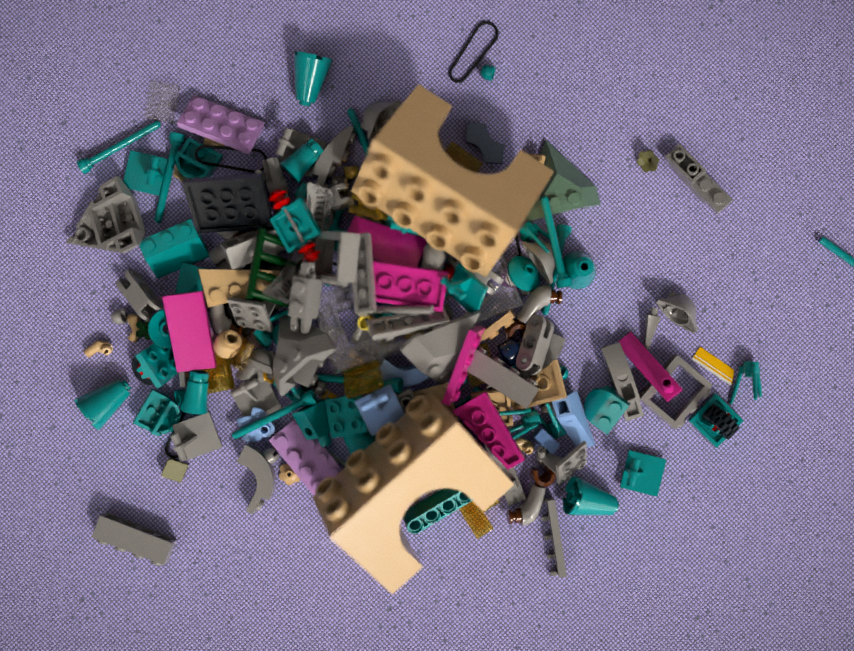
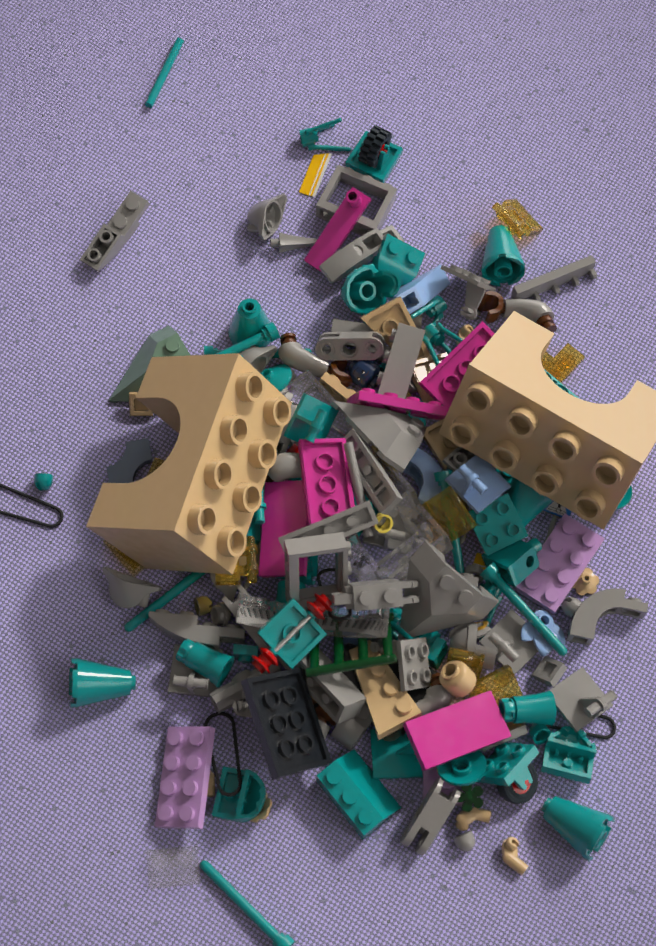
camera: 110 degrees left, 20 degrees down
(111, 220) = (349, 881): light grey wedge -> none
(145, 173) = (272, 859): teal plate -> none
(174, 470) = (629, 717): slope -> none
(175, 140) = (220, 831): teal piece -> none
(224, 420) = (549, 671): none -> light grey tile
(545, 440) = (451, 314): medium blue piece -> none
(583, 374) = (368, 288): none -> teal head
(621, 529) = (517, 218): none -> clear yellow plate
(642, 473) = (454, 213): teal plate -> none
(648, 161) = (107, 287): olive plant -> none

